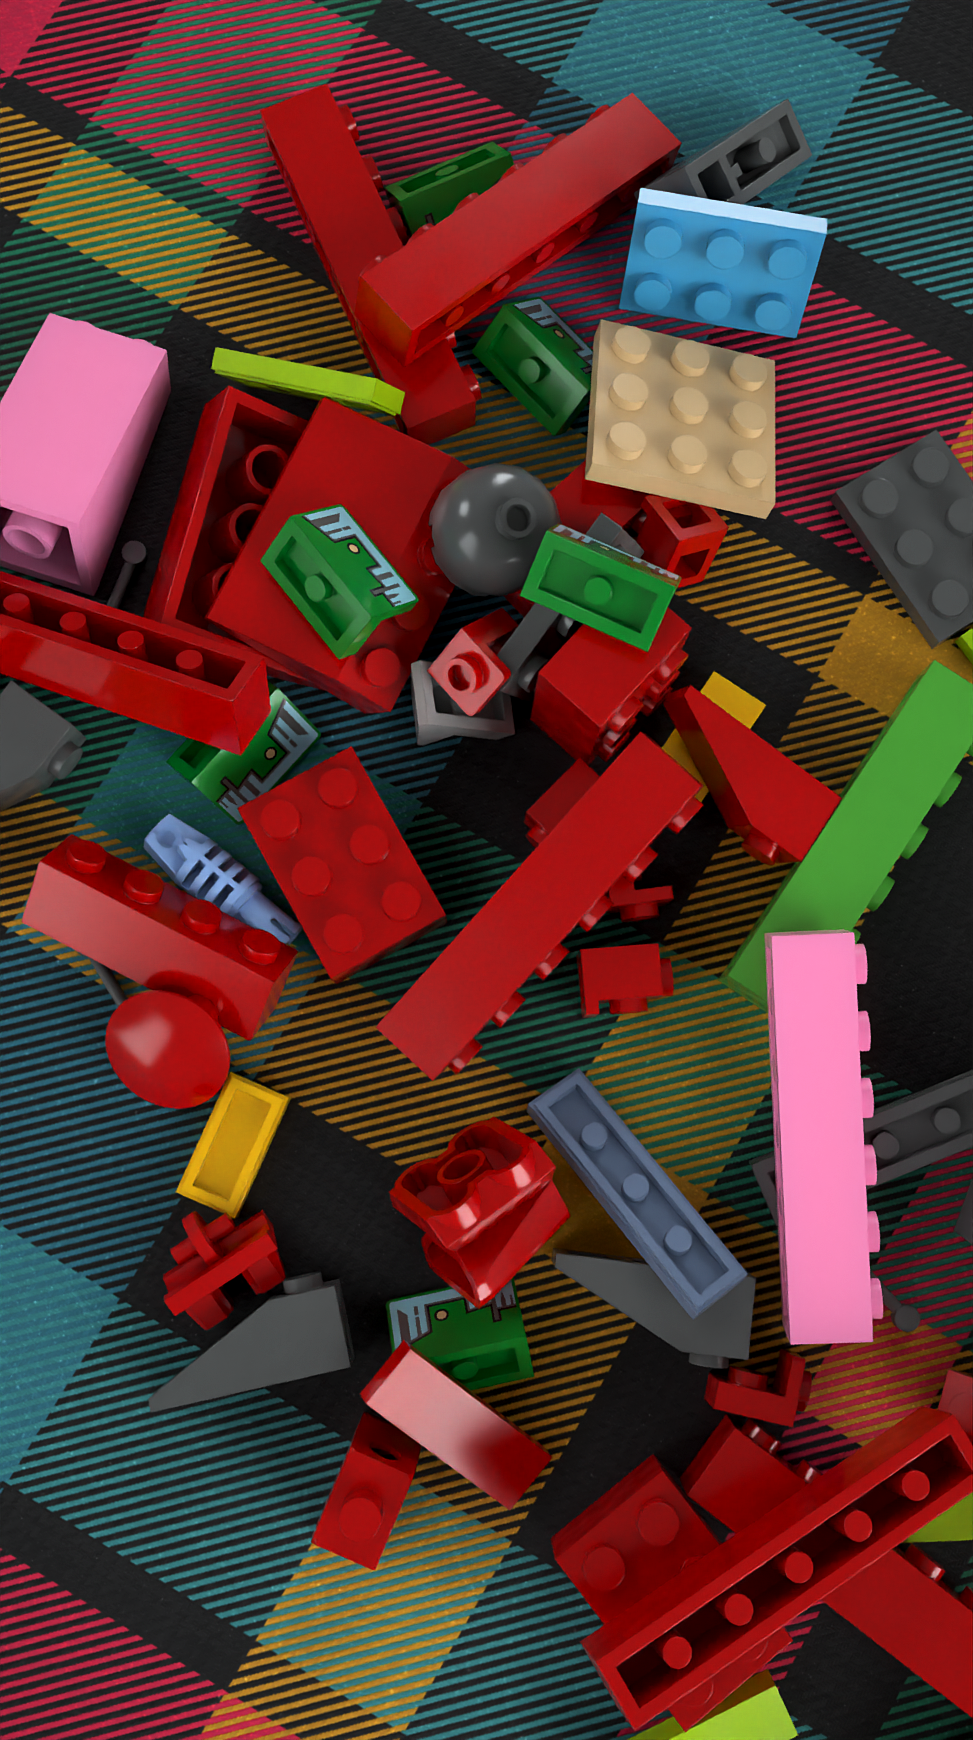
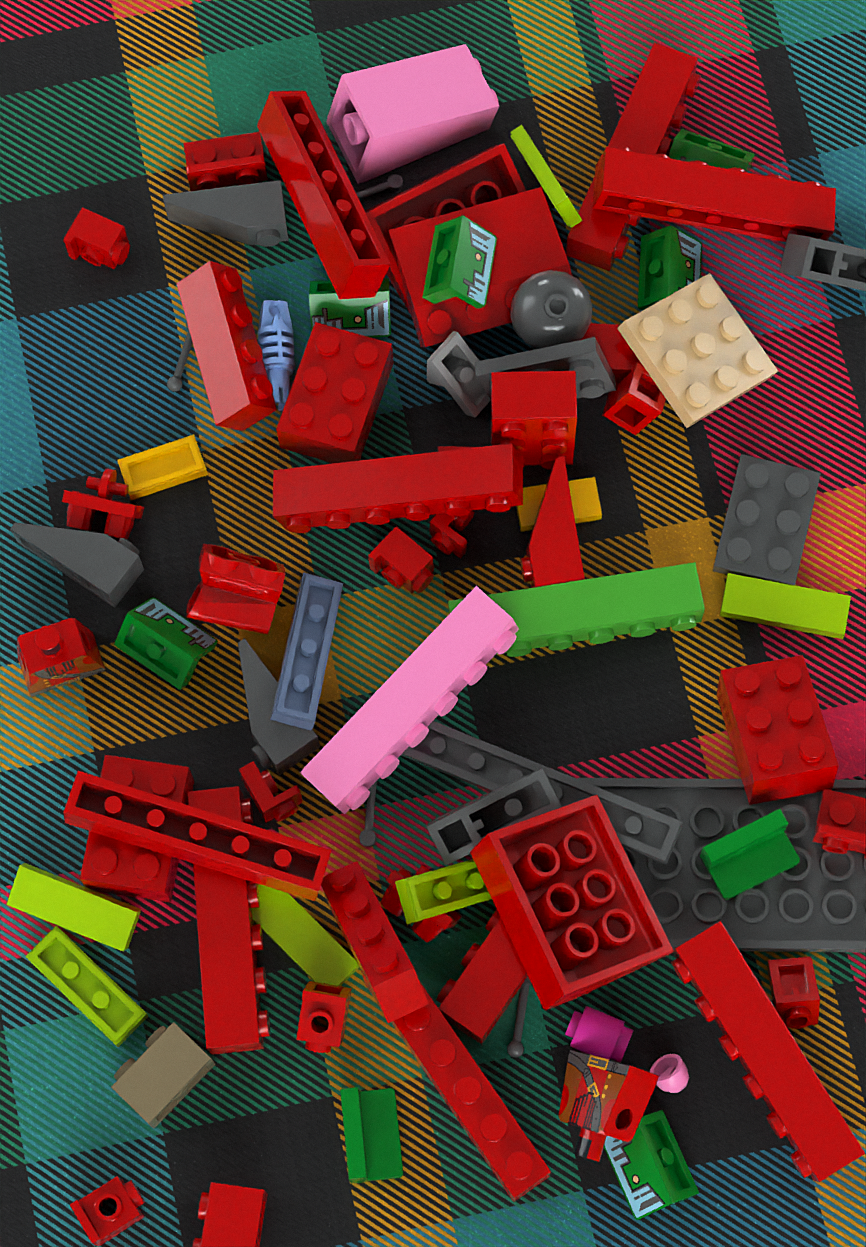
camera: 55 degrees right, 10 degrees down
(168, 1048) = (179, 395): red dish -> none
(455, 1425) = (125, 667): tile -> none
(470, 663) = (474, 350): red bracket -> none
(600, 586) = (555, 359): green panel -> none
(721, 262) = (792, 300): dark azure plate -> none

